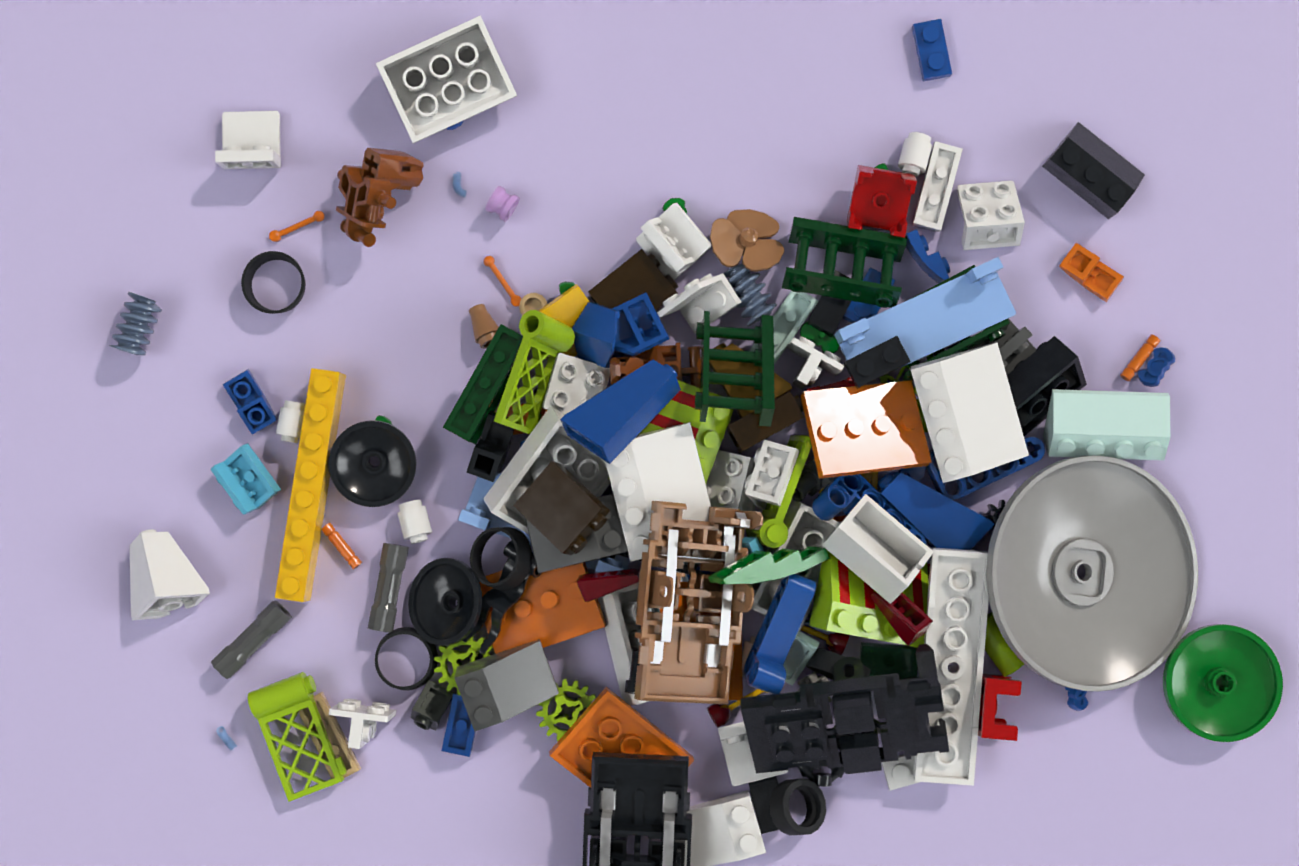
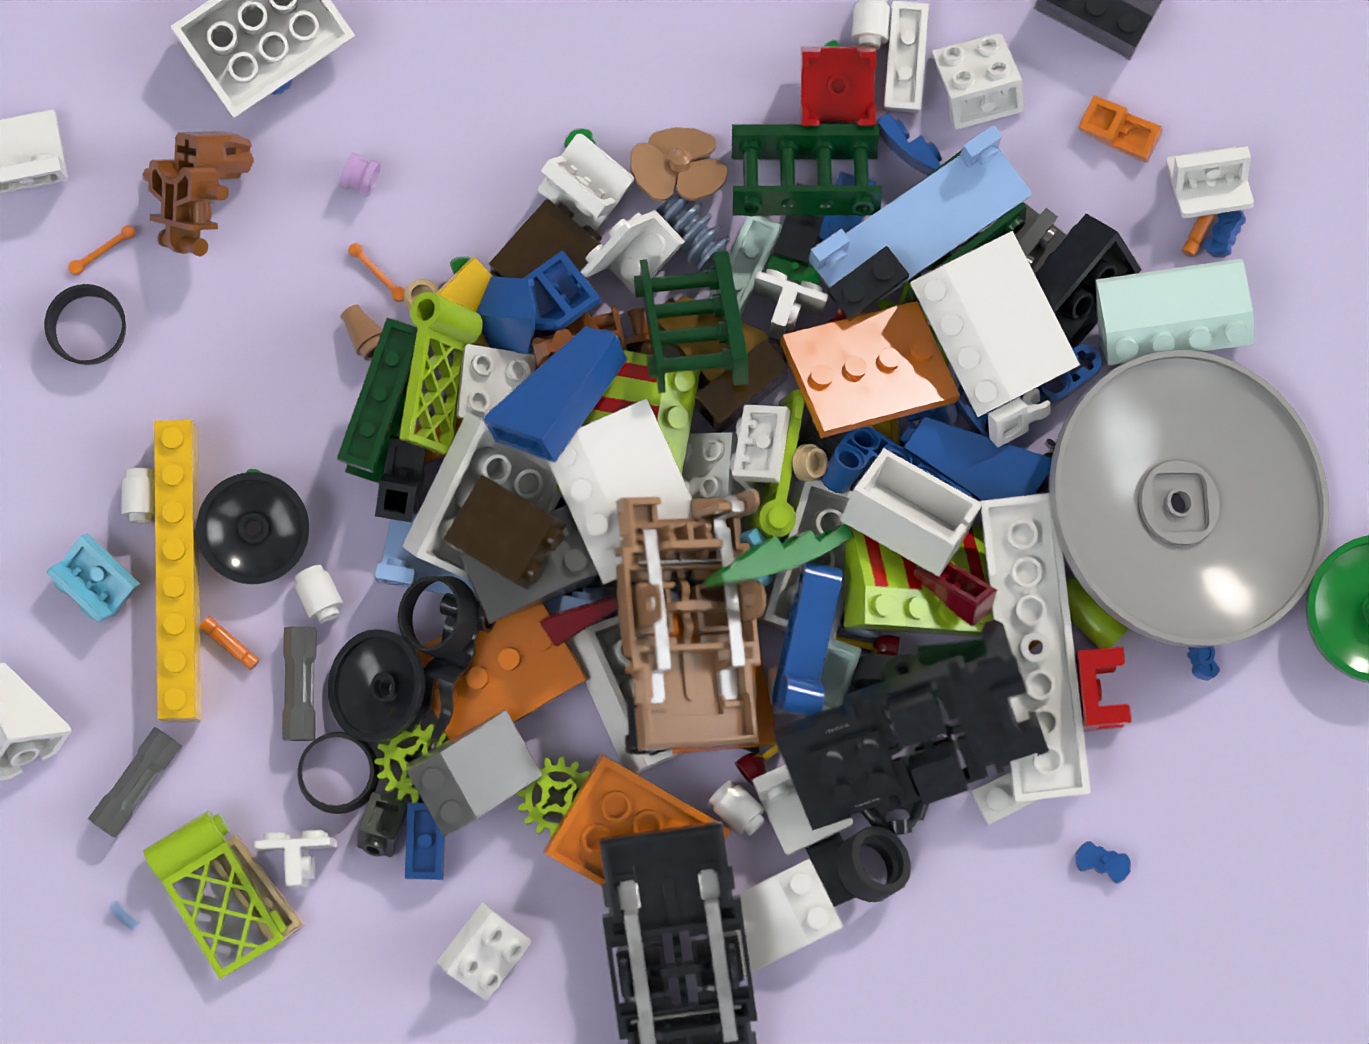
camera: 15 degrees left, 5 degrees down
(250, 401) = (80, 481): blue slope -> none
(457, 185) = (298, 165): light blue leg -> none
(490, 817) = (484, 952): none -> white bracket
(702, 744) = (737, 808): none -> white brick
(806, 494) = (809, 462): none -> tan plate
(970, 487) = (1014, 417): none -> white plate
(974, 834) = (1103, 861): none -> blue piece
(1155, 326) = (1211, 181): none -> white bracket

